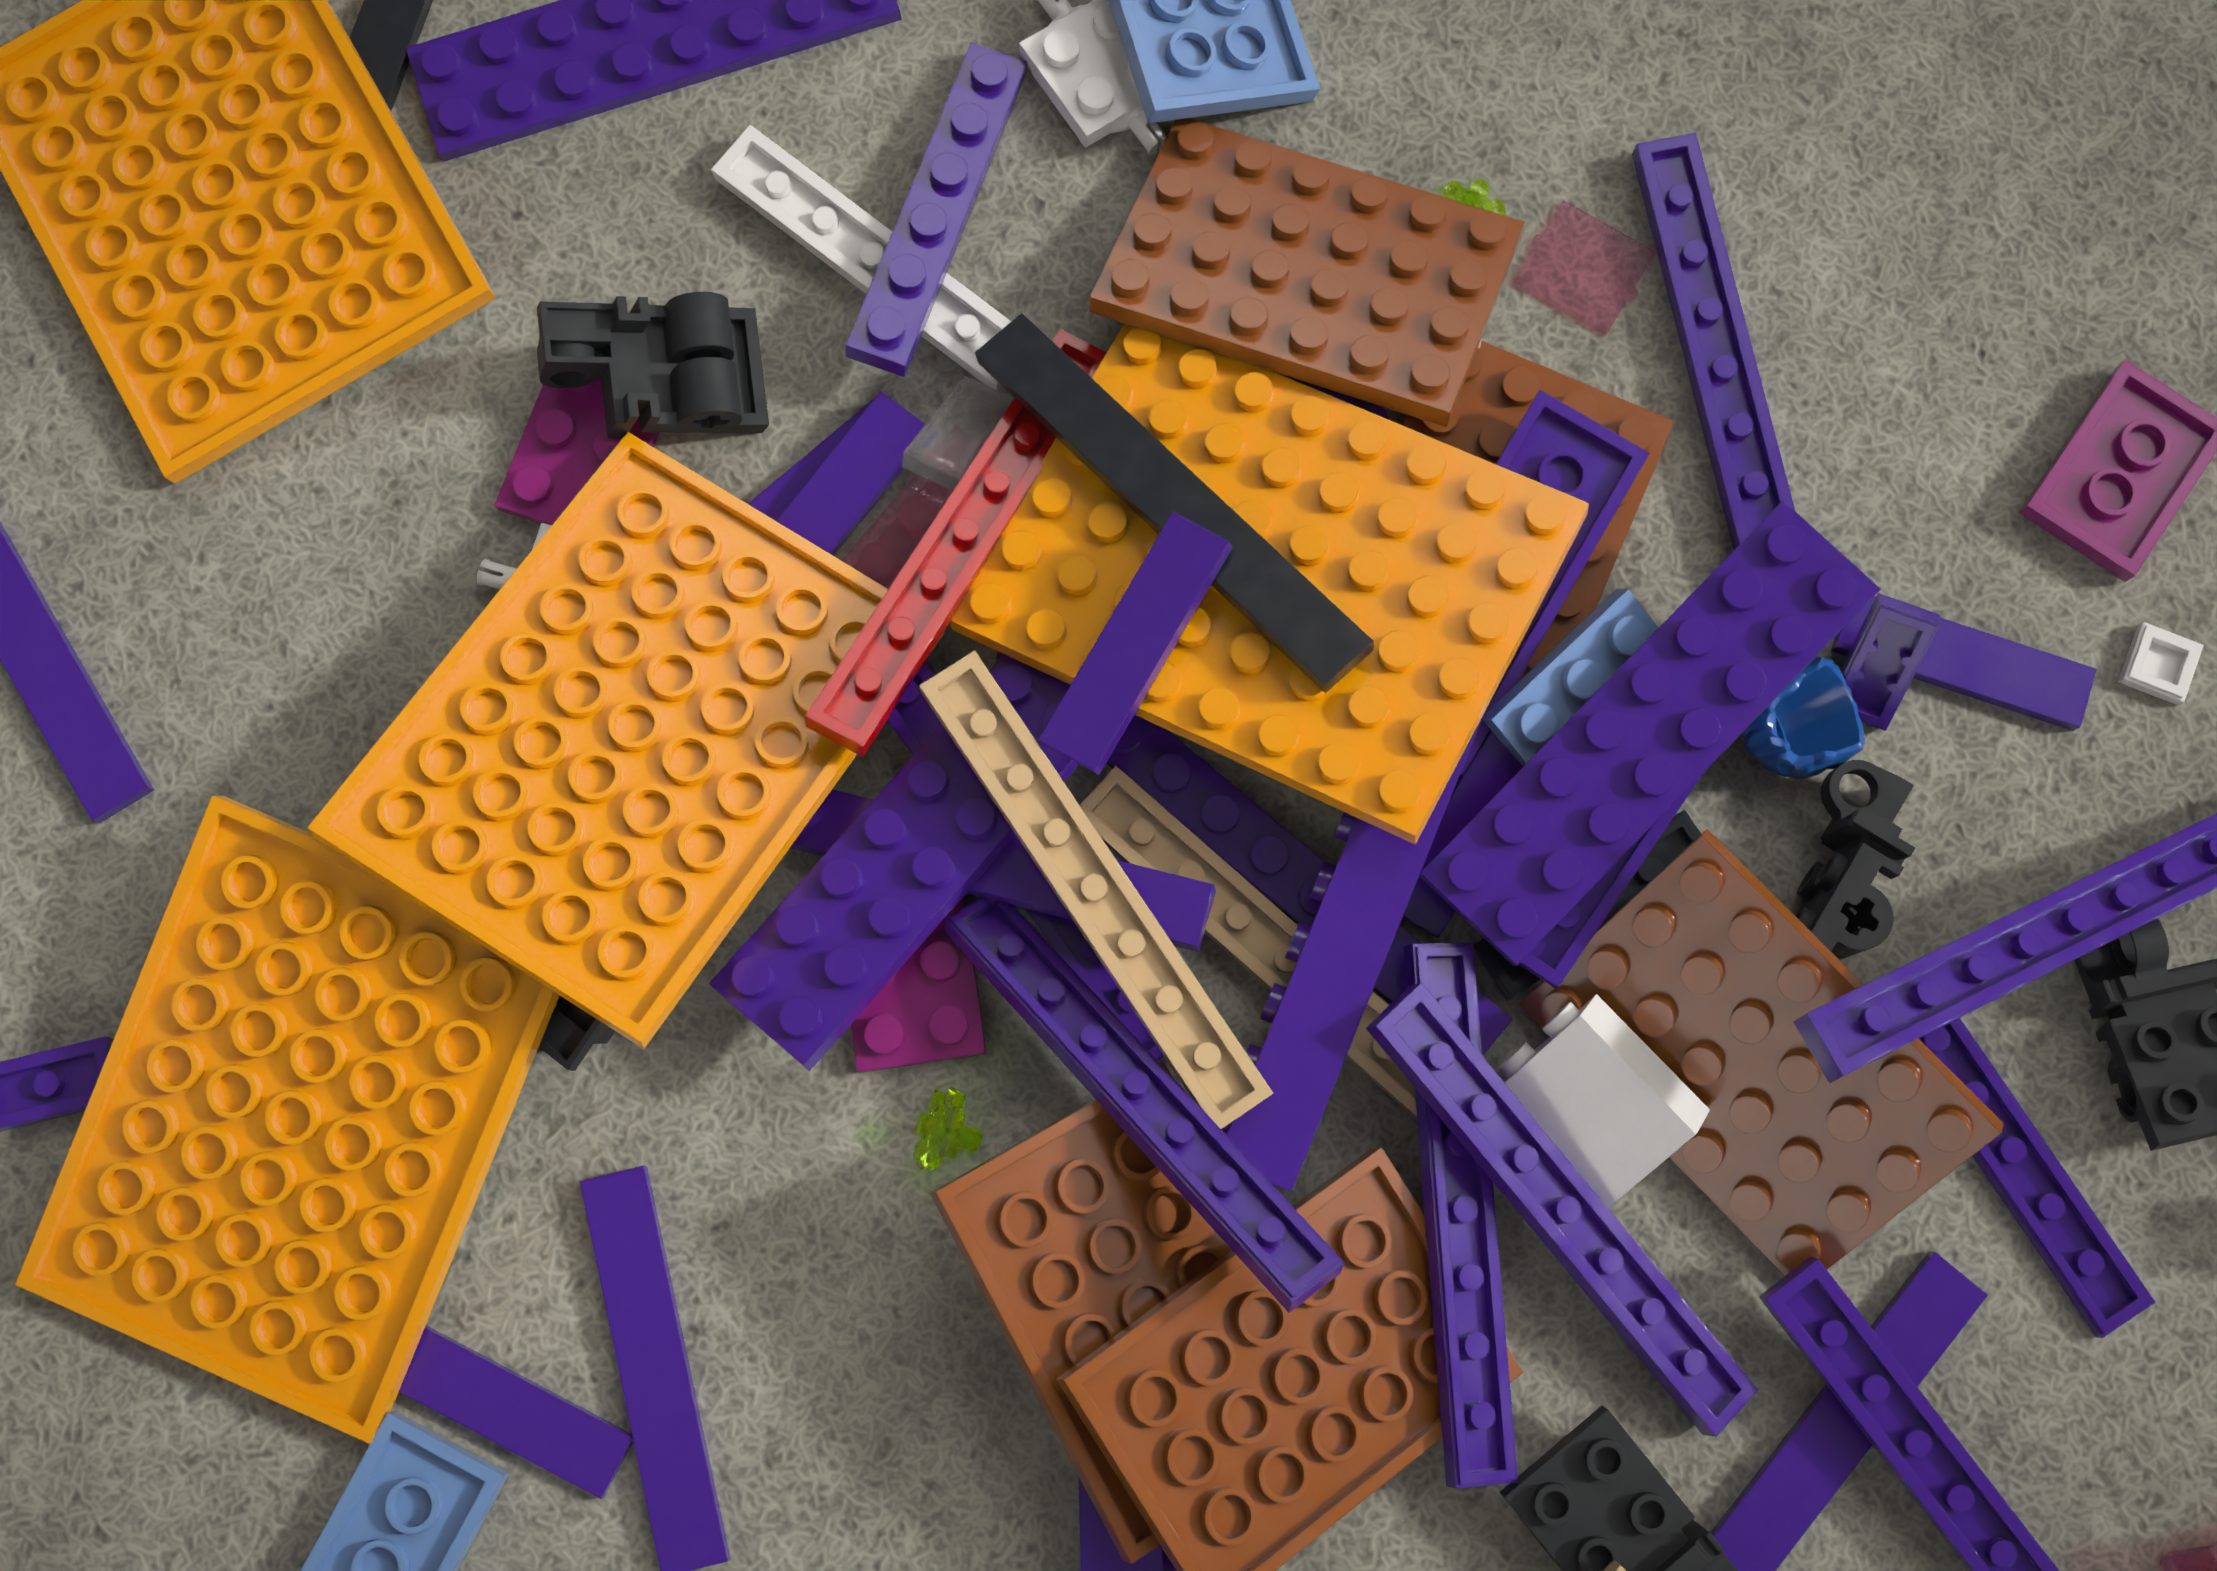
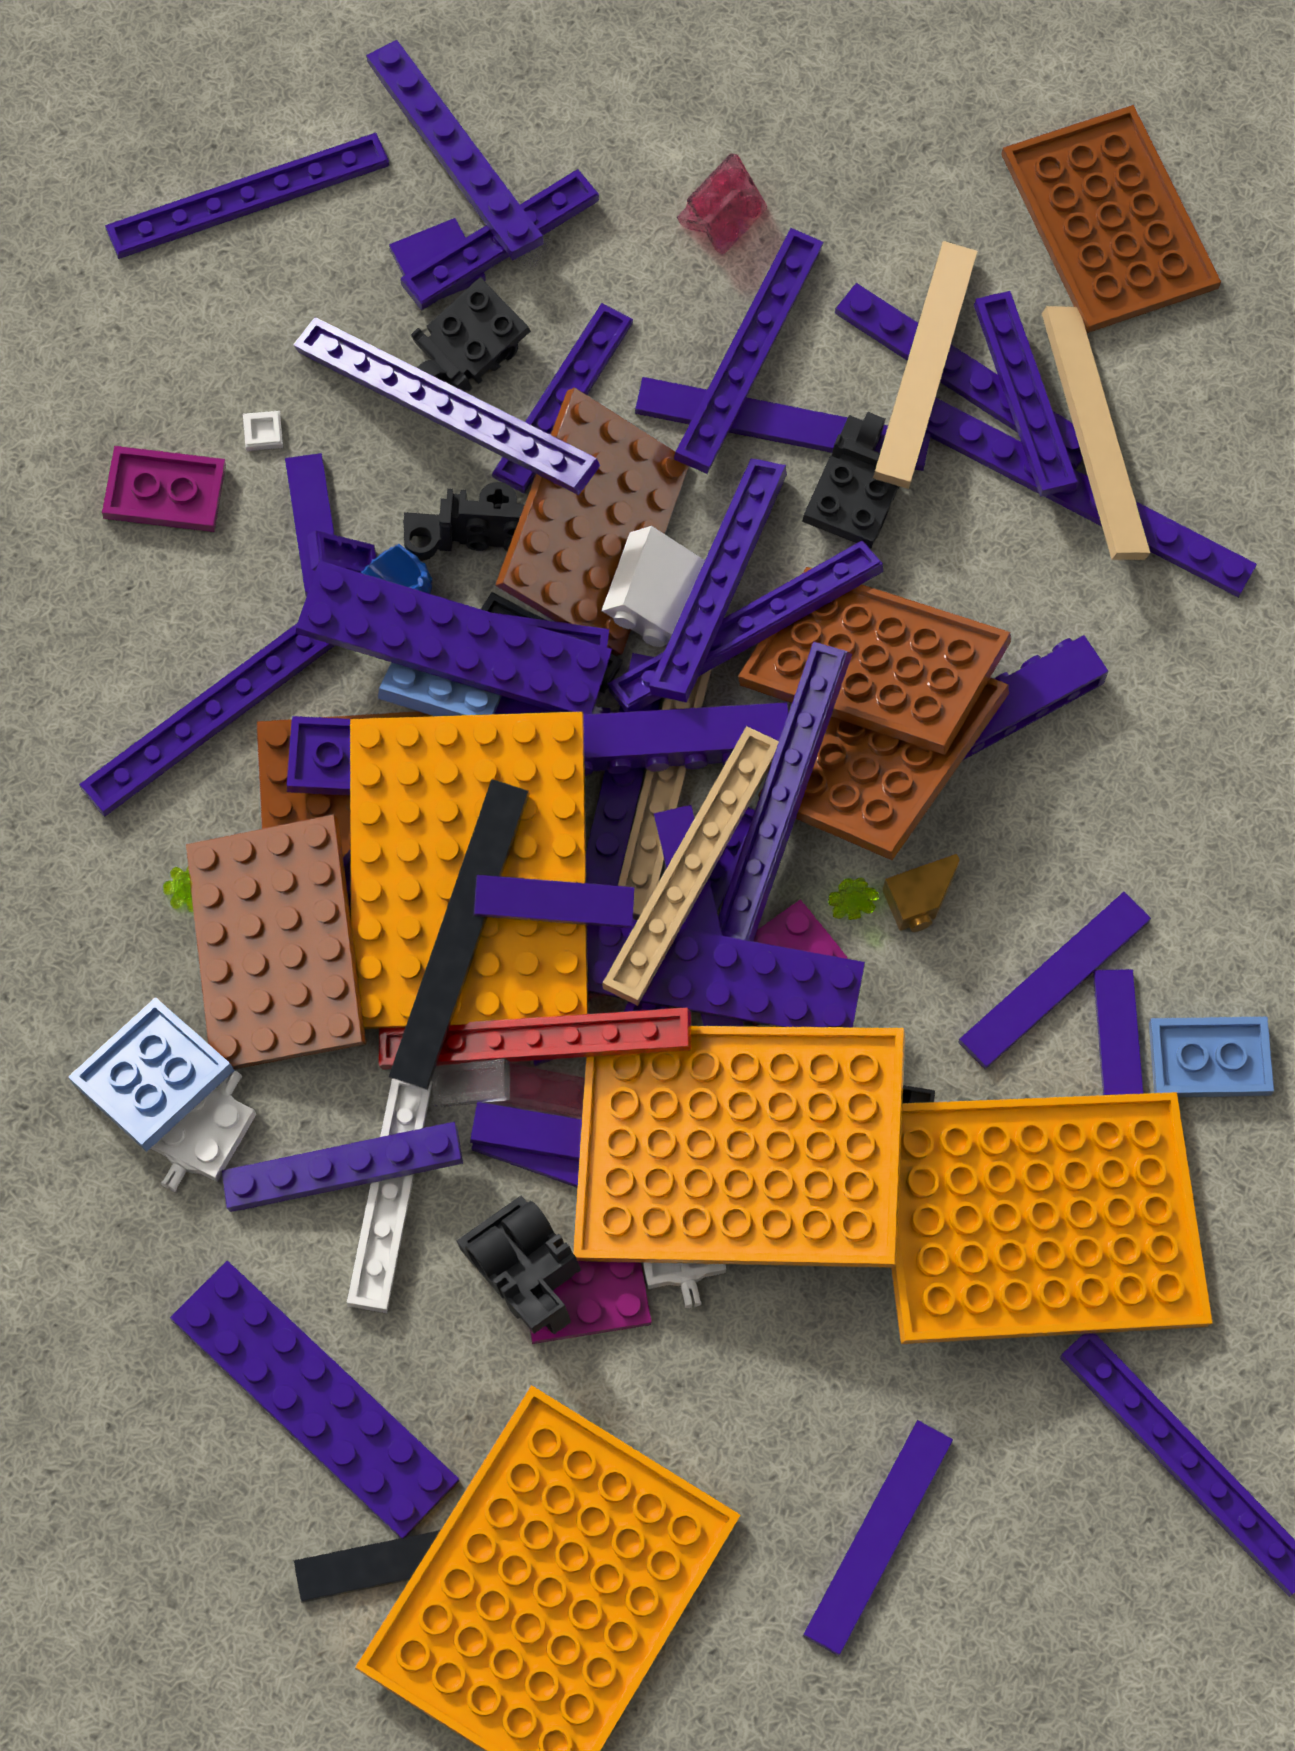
camera: 125 degrees left, 10 degrees down
(891, 1239) = (919, 892): none -> pearl gold slope
(1584, 267) = (186, 810): clear pink piece -> none

